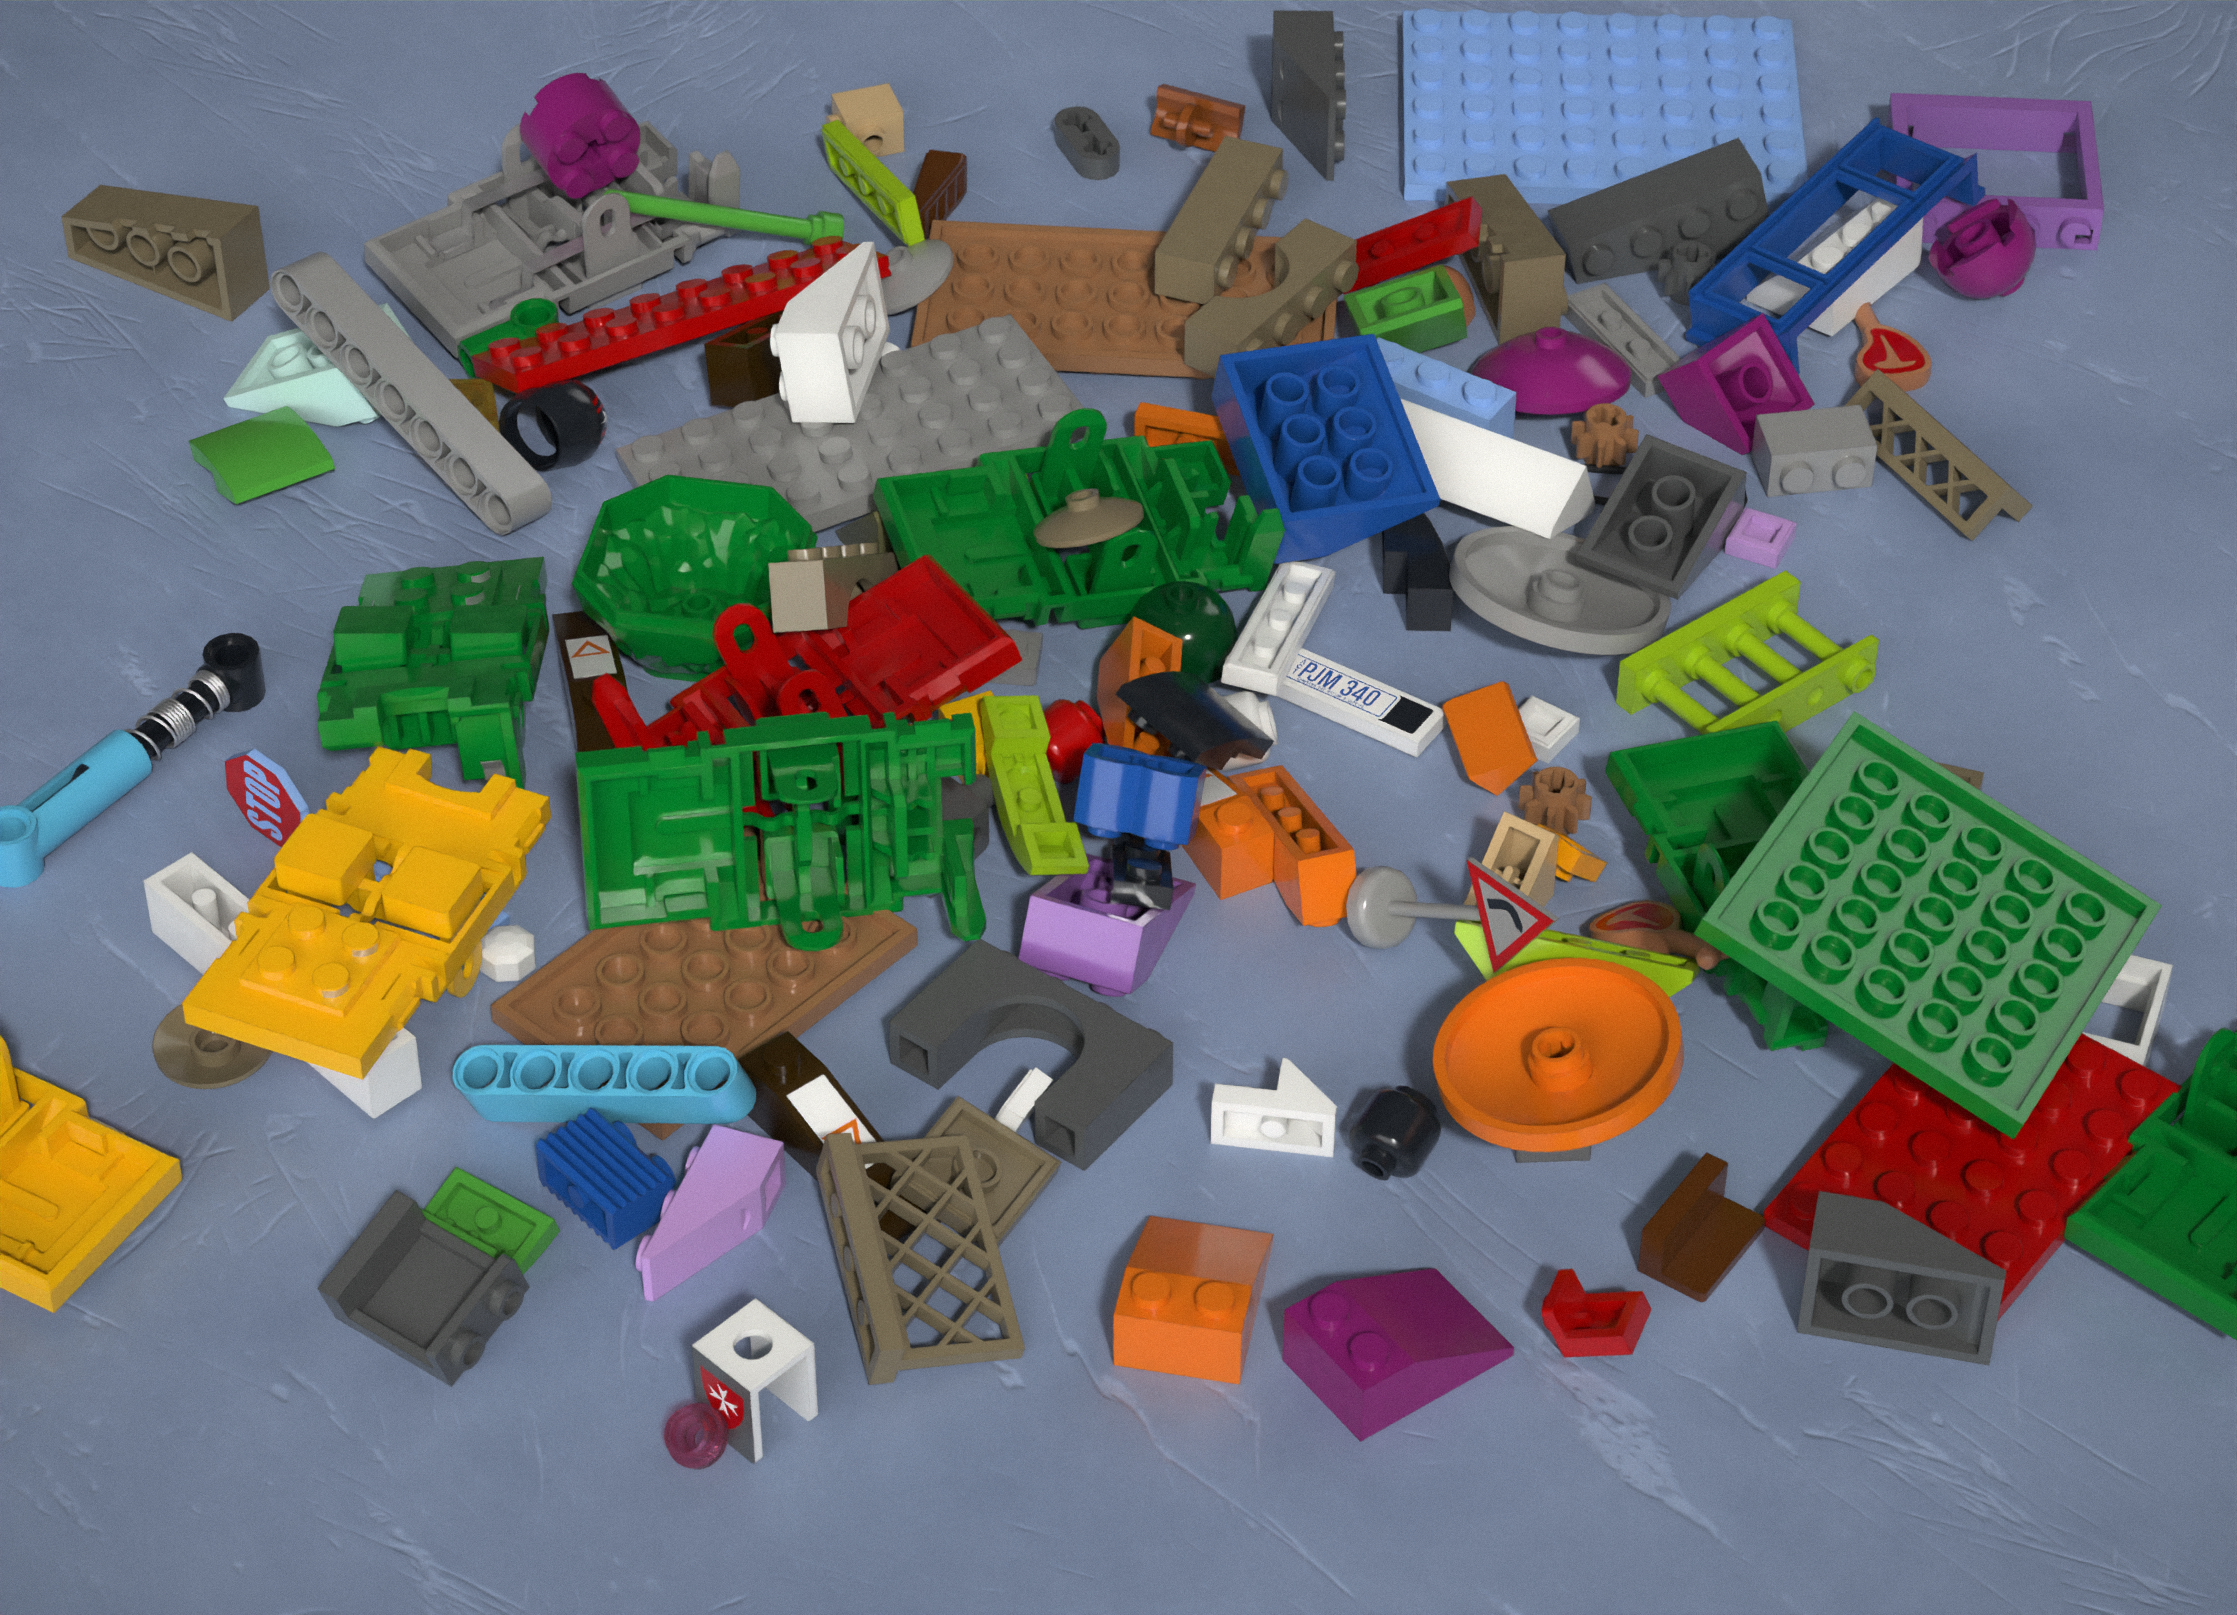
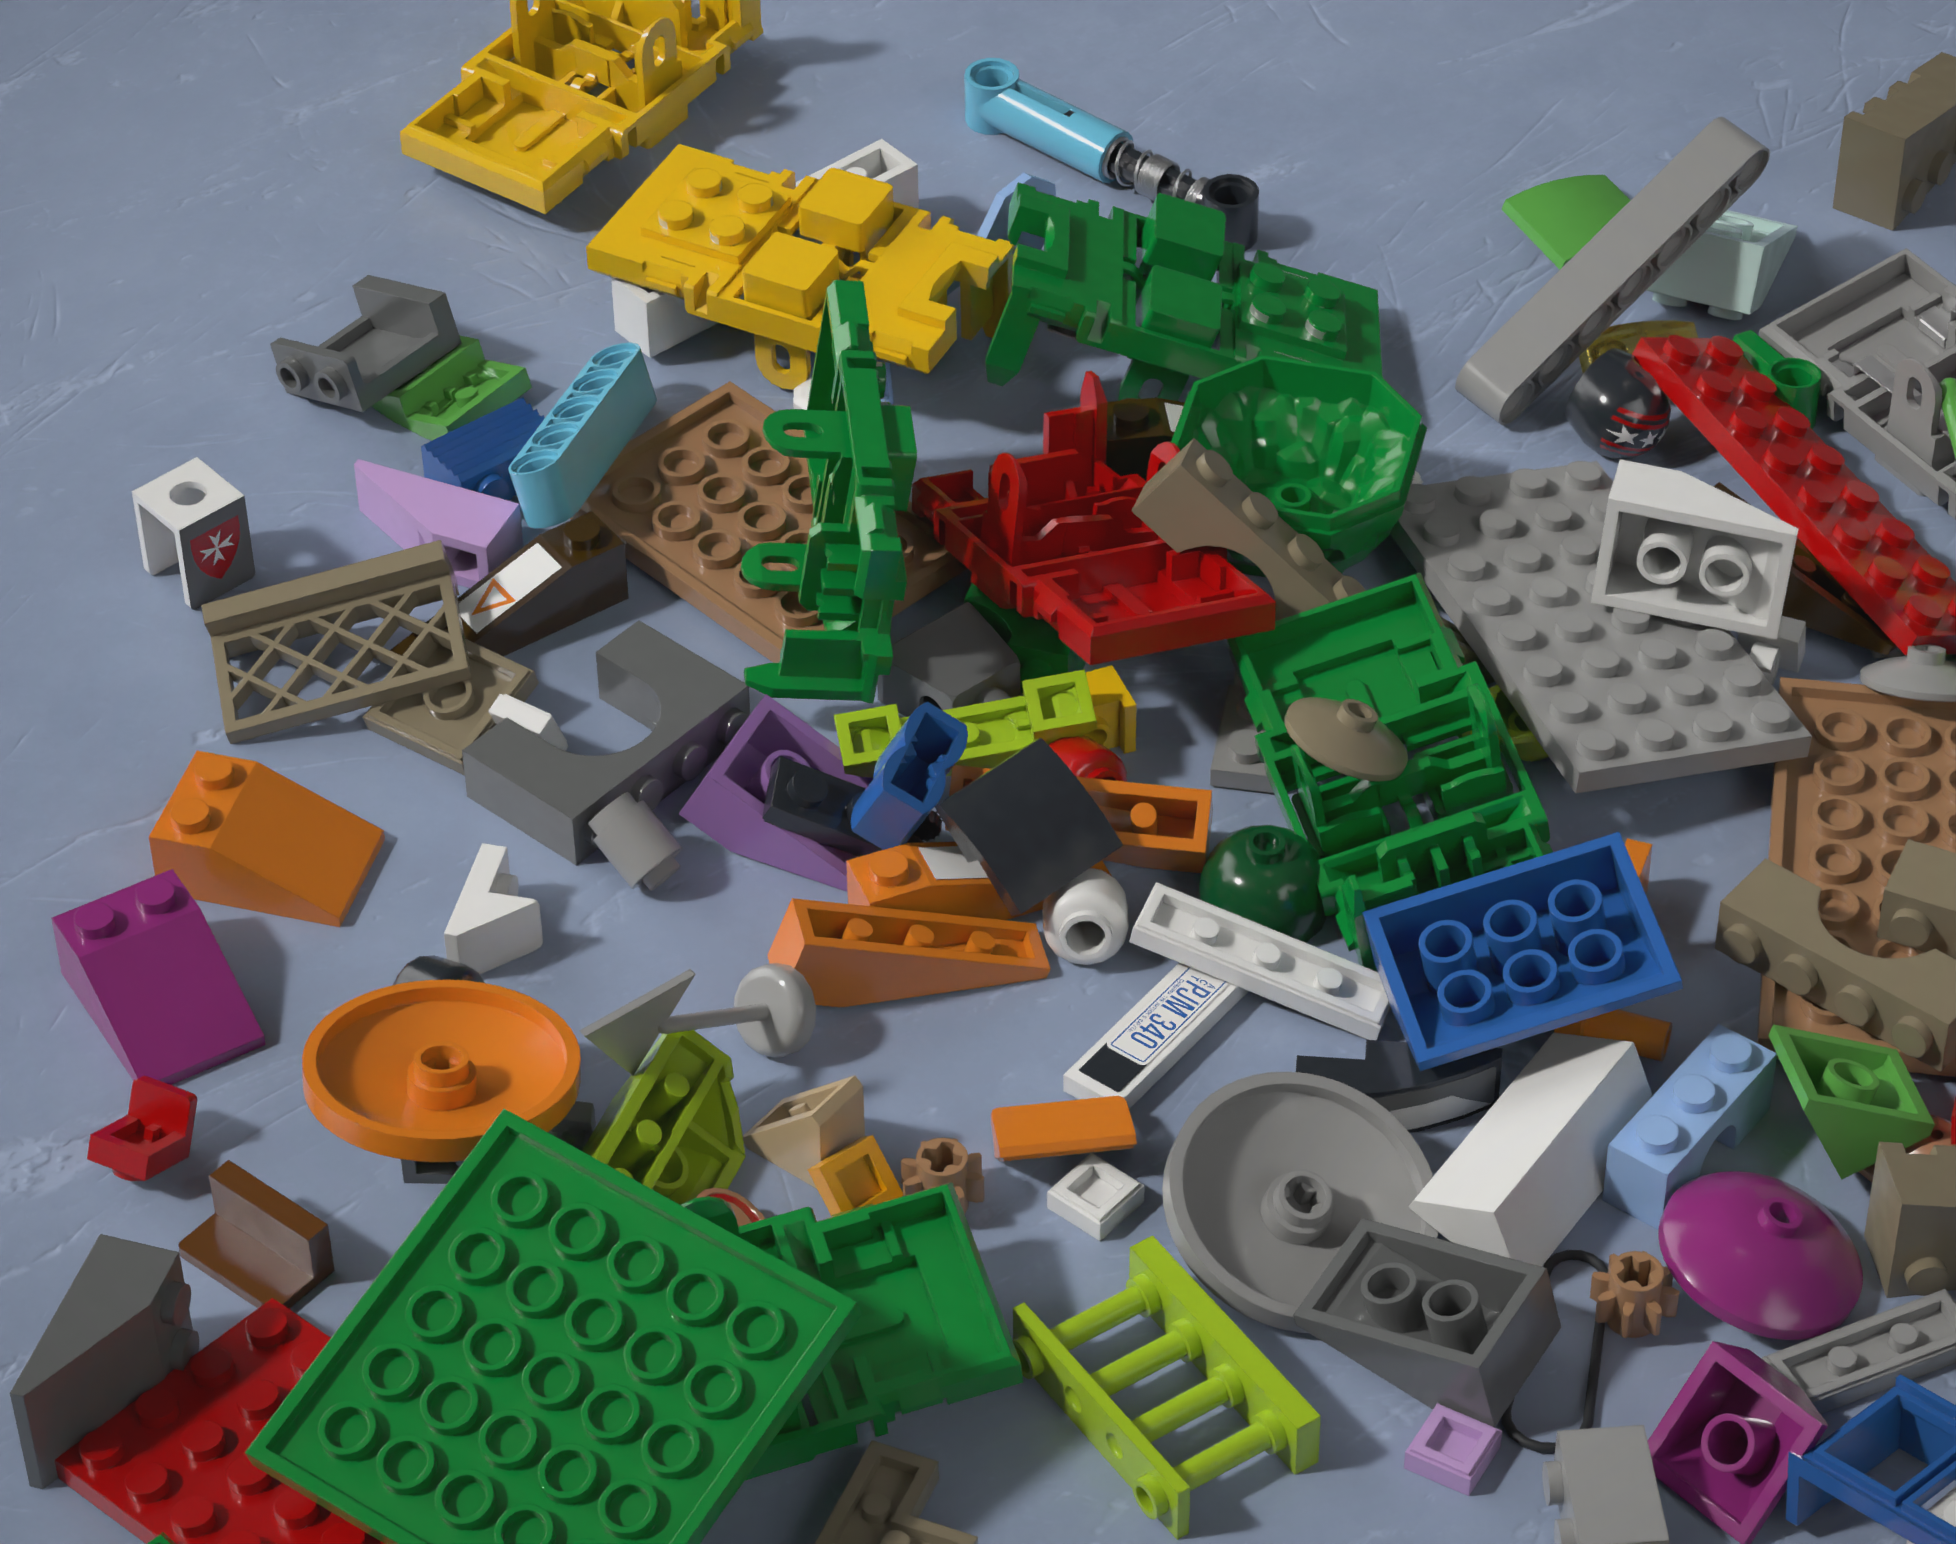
camera: 95 degrees right, 0 degrees up
(1181, 1010) = (636, 842): none -> light grey brick

